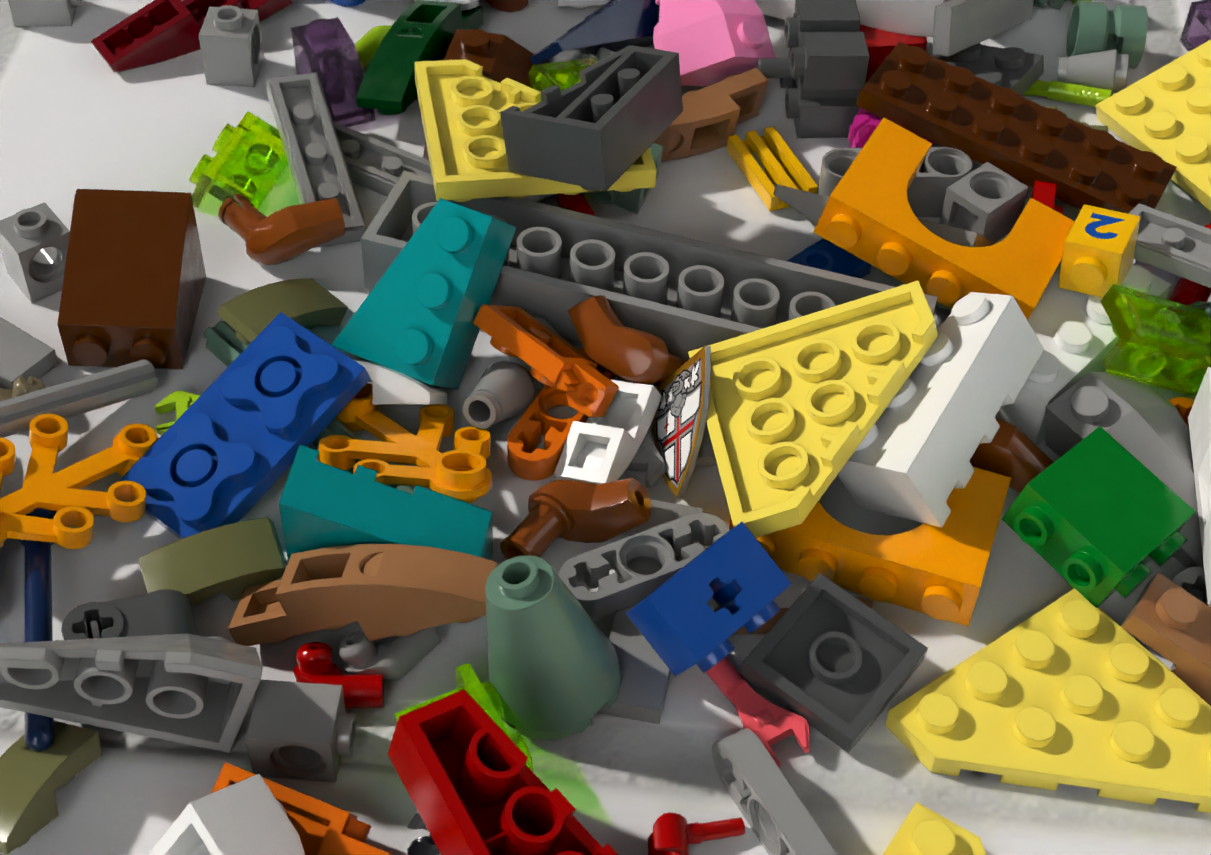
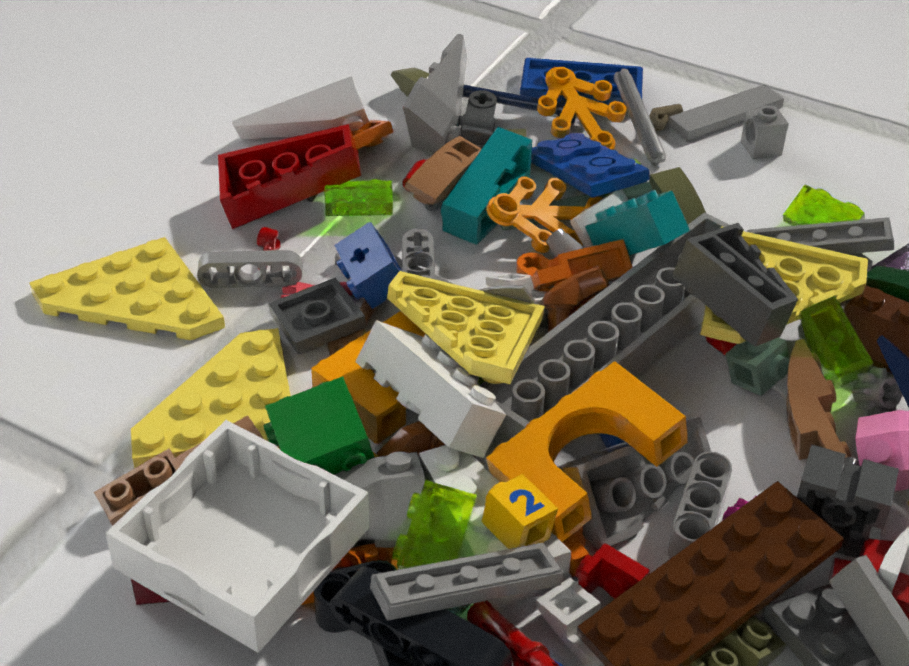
camera: 115 degrees right, 5 degrees down
(131, 279) = (719, 150): reddish brown slope -> none
(284, 232) = (751, 212): dark orange arm -> none
(299, 730) = (399, 150): light grey brick -> none
(545, 651) = (382, 198): sand green cone -> none
(577, 514) = (476, 261): dark orange arm -> none
(779, 163) = (755, 454): yellow tile -> none
(984, 202) = (649, 540): light grey brick -> none

